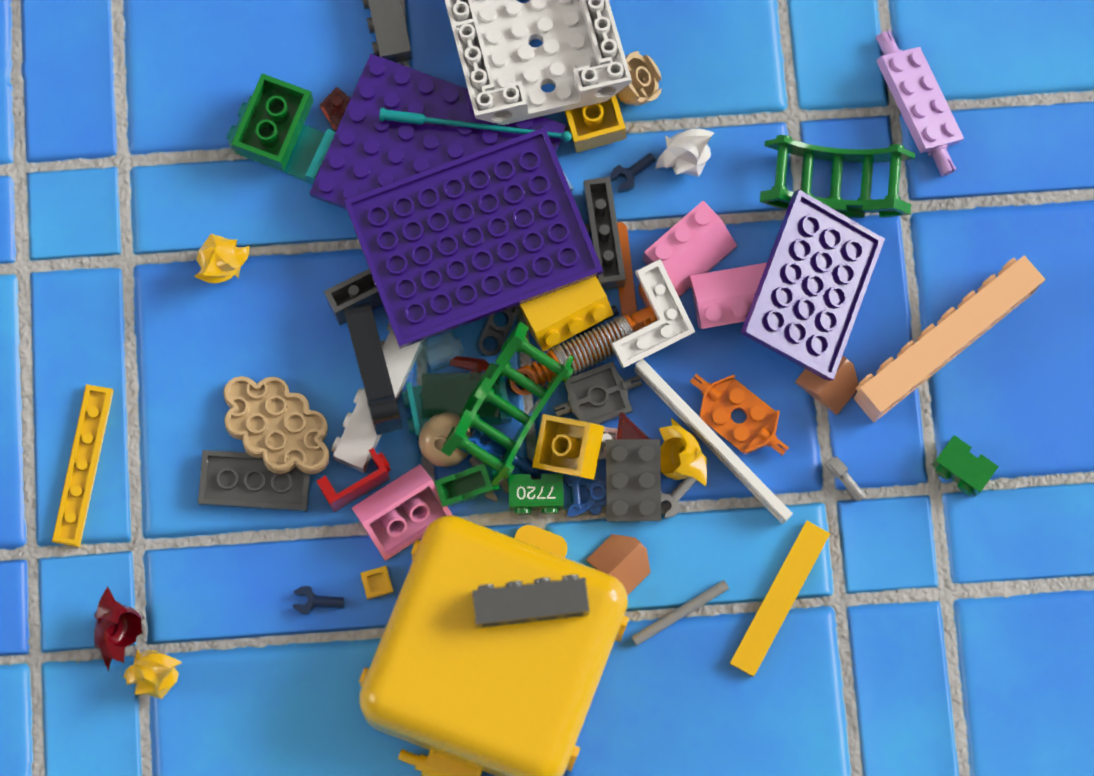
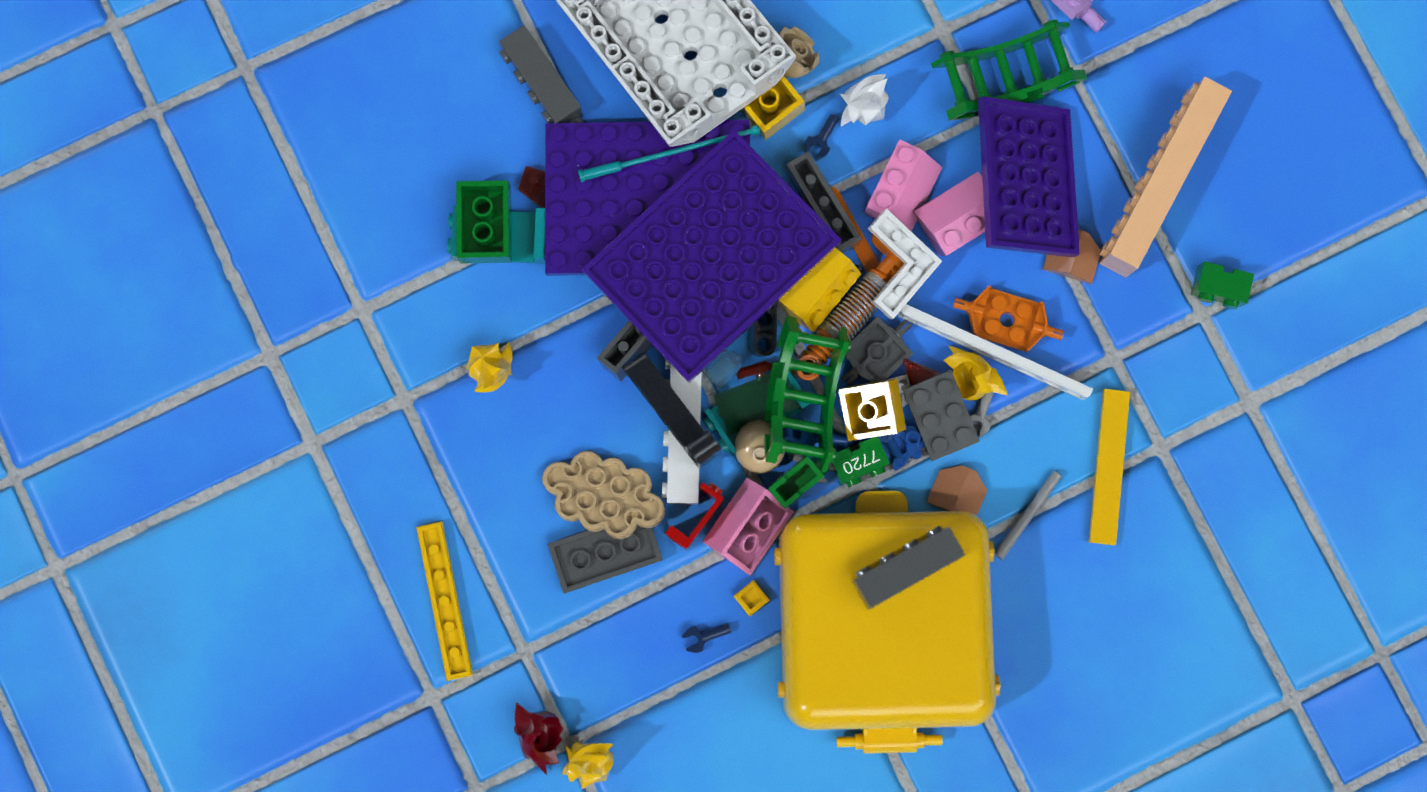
camera: 25 degrees left, 5 degrees up
(839, 470) = (1116, 332): light grey bar -> none

